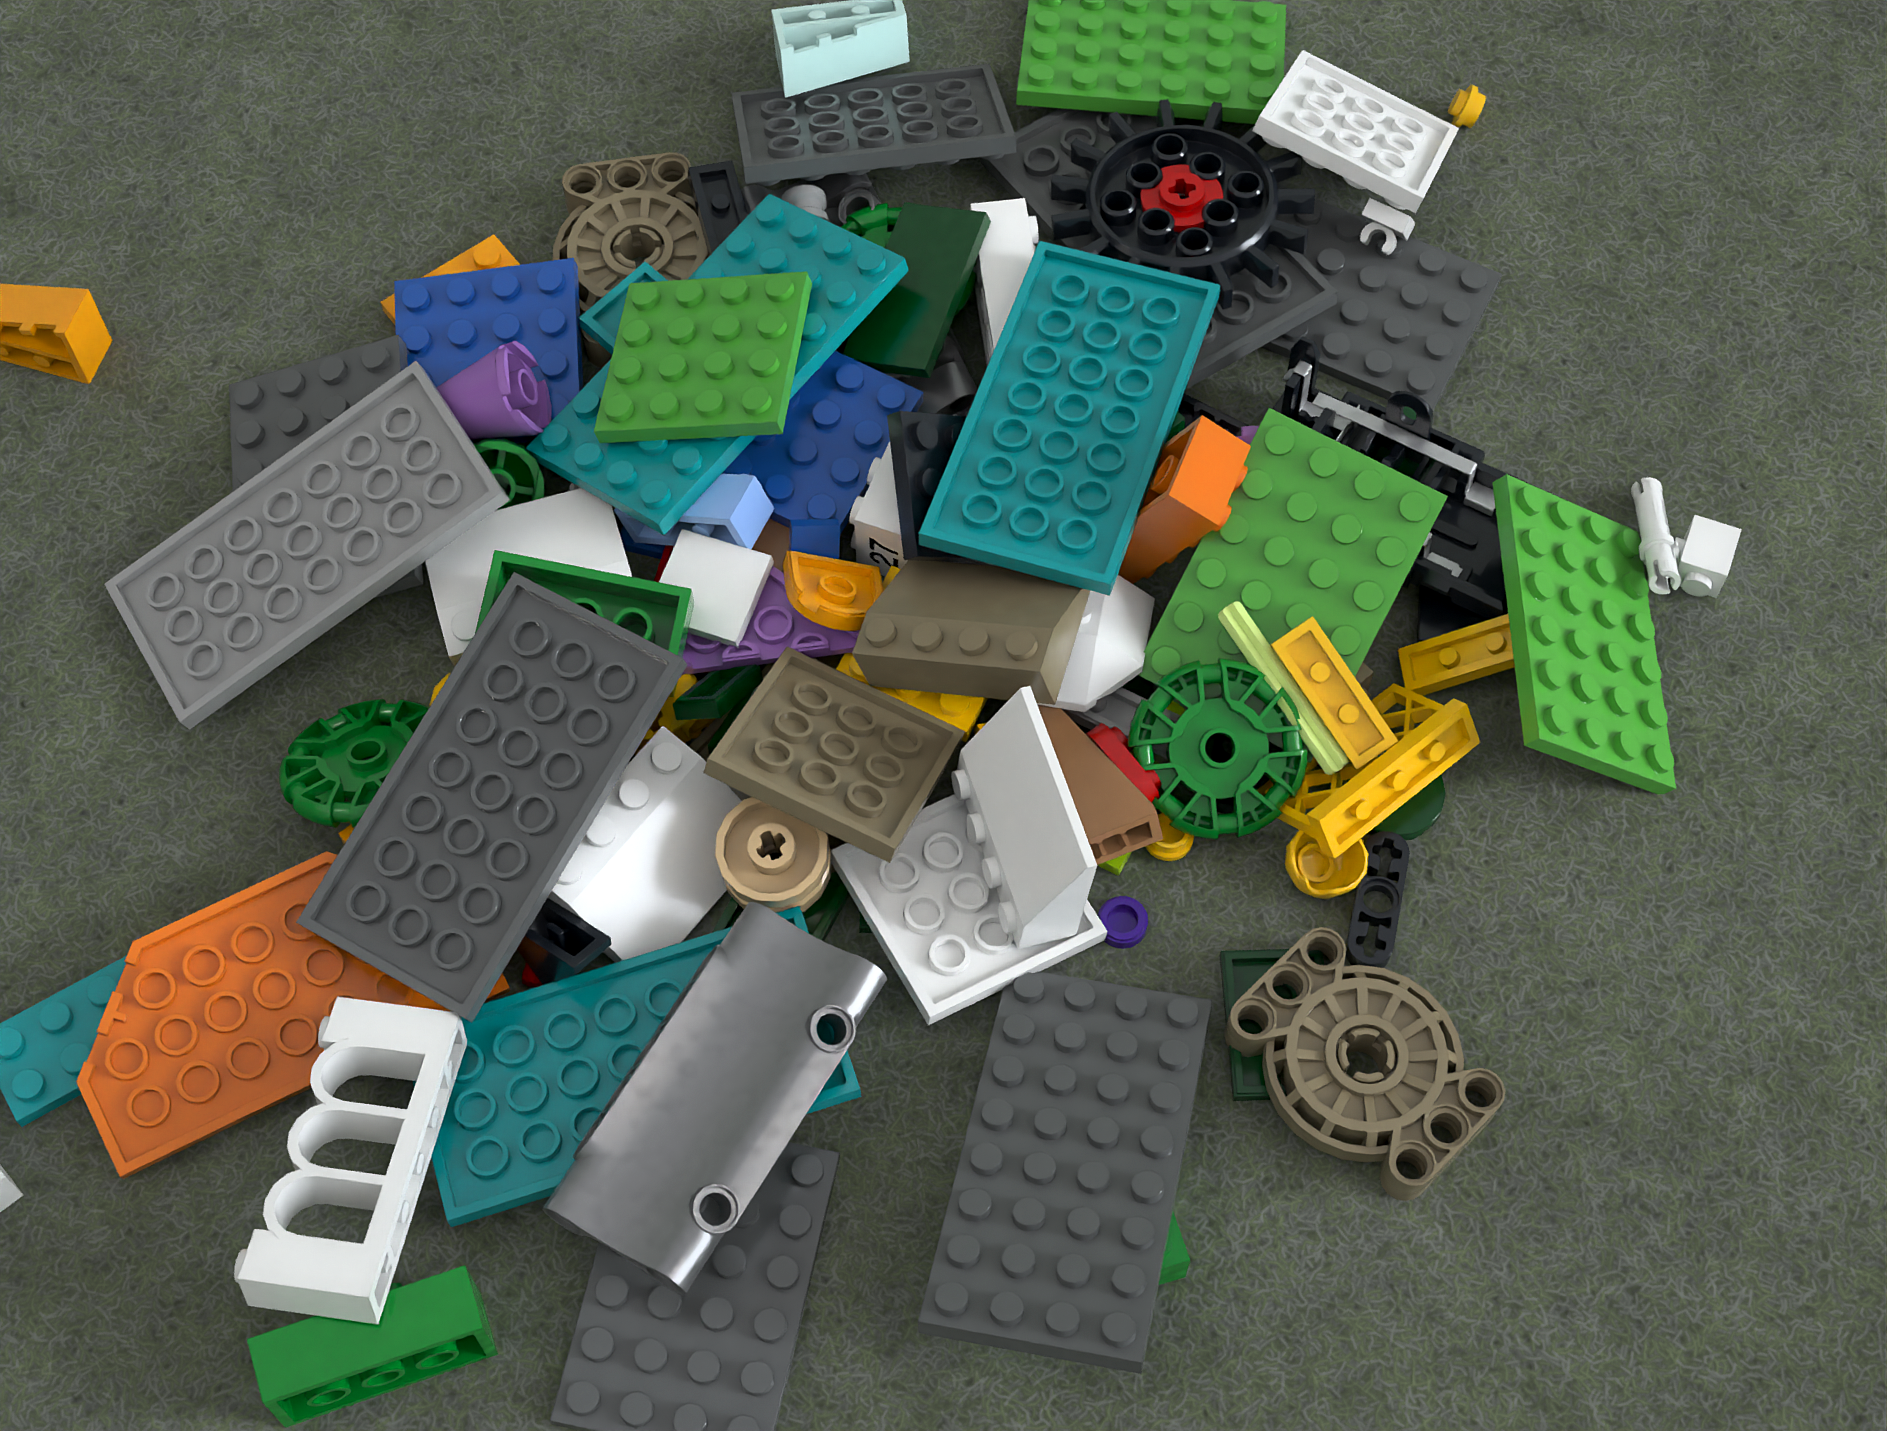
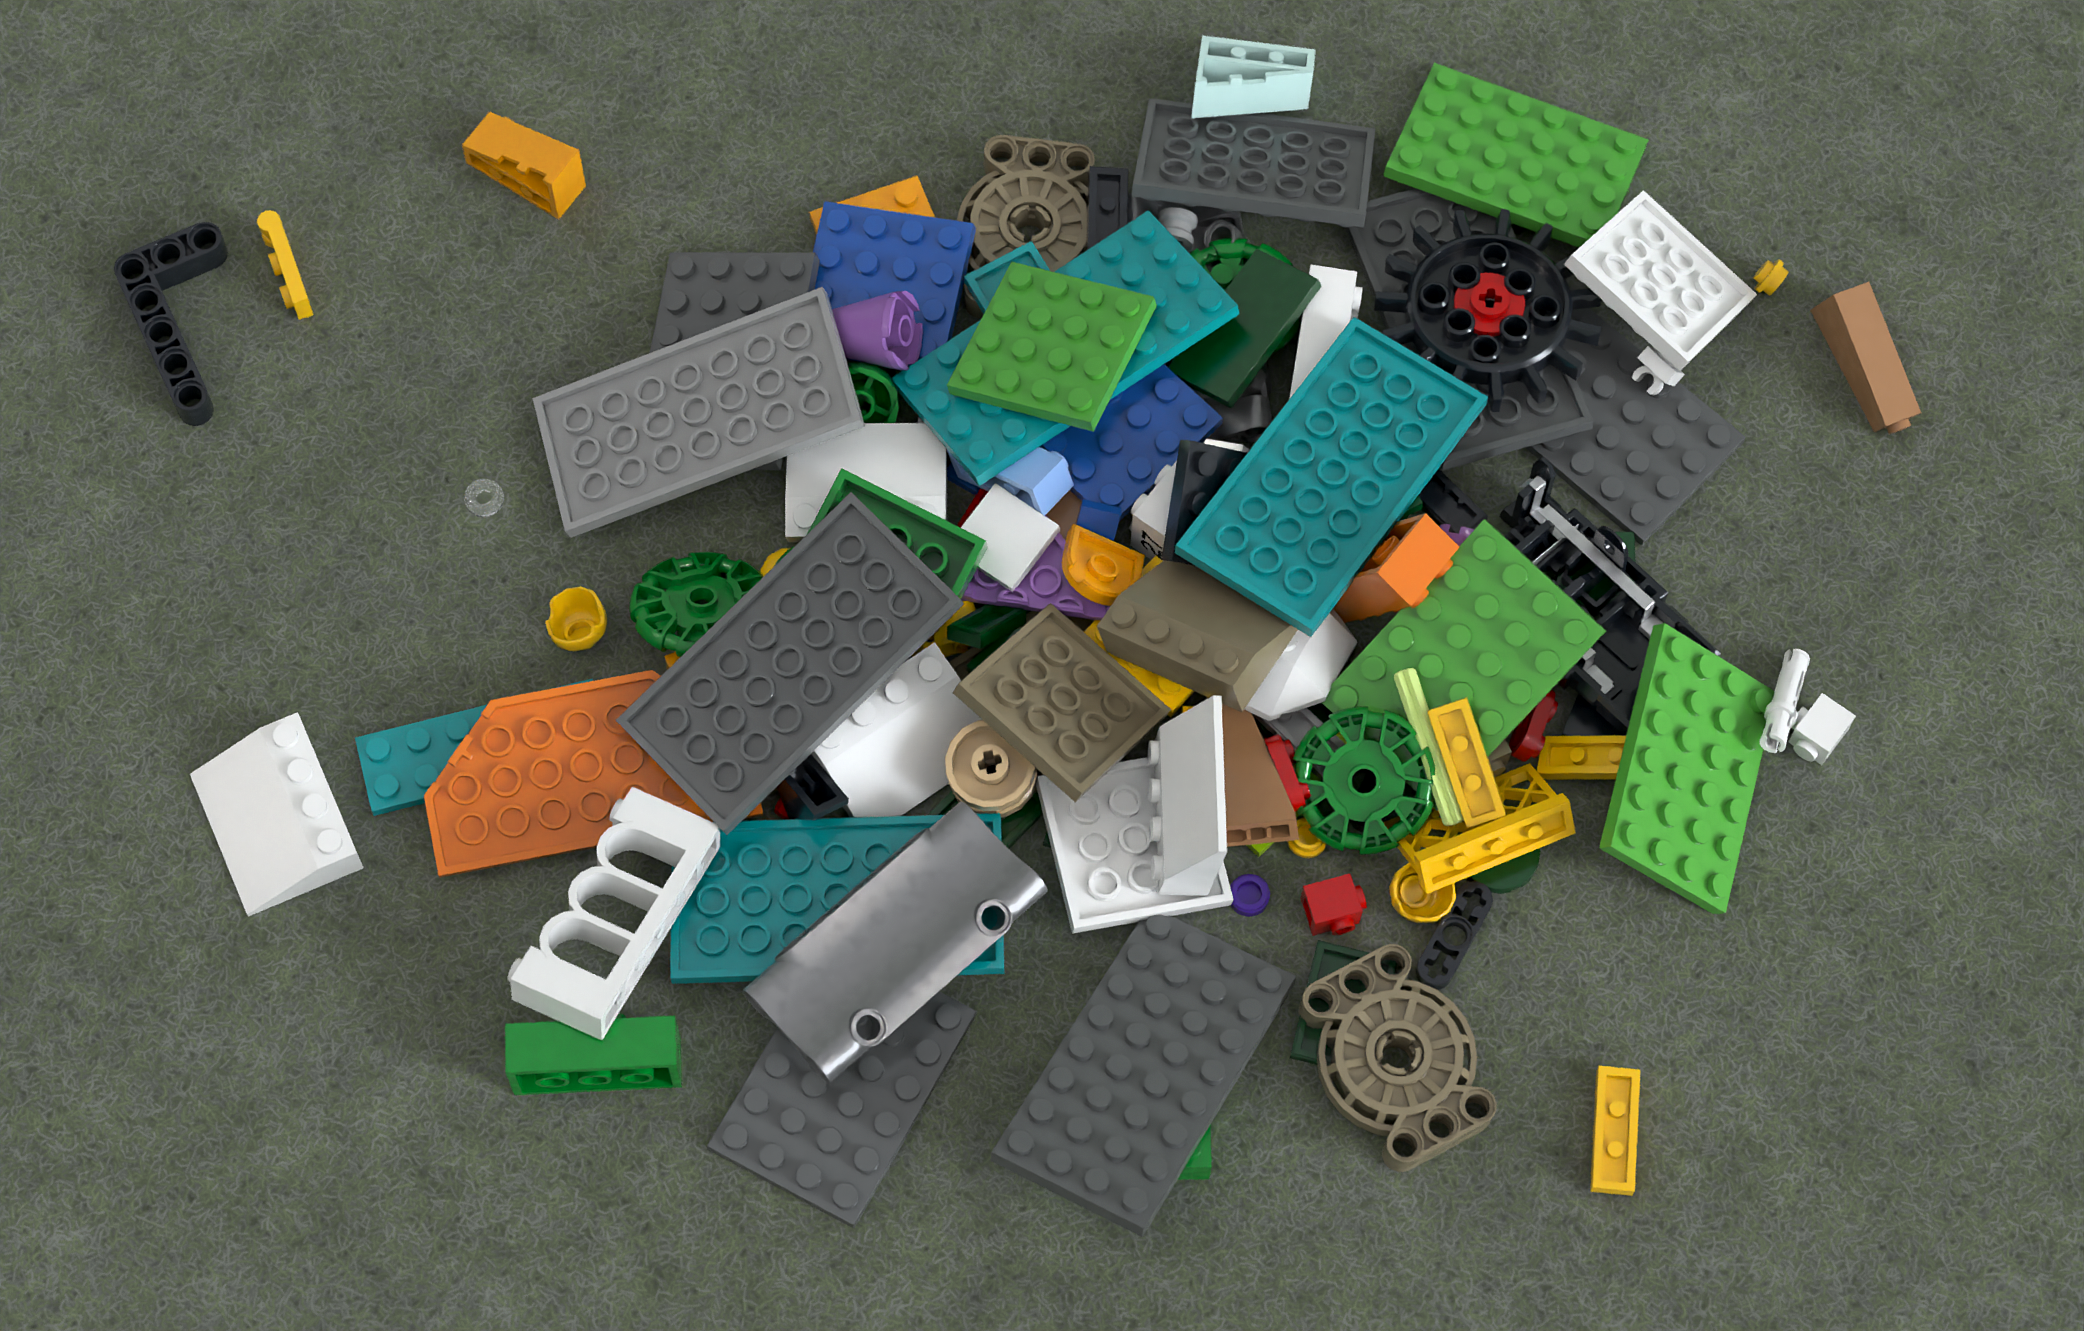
camera: 15 degrees right, 5 degrees up
(66, 701) = (481, 487): none -> clear plate
(219, 820) = (576, 619): none -> yellow hair
(1226, 905) = (1333, 905): none -> red brick
(1385, 654) = (1527, 736): none -> red plate
(1602, 156) = (1867, 357): none -> medium nougat slope
(1647, 1076) = (1615, 1130): none -> yellow plate

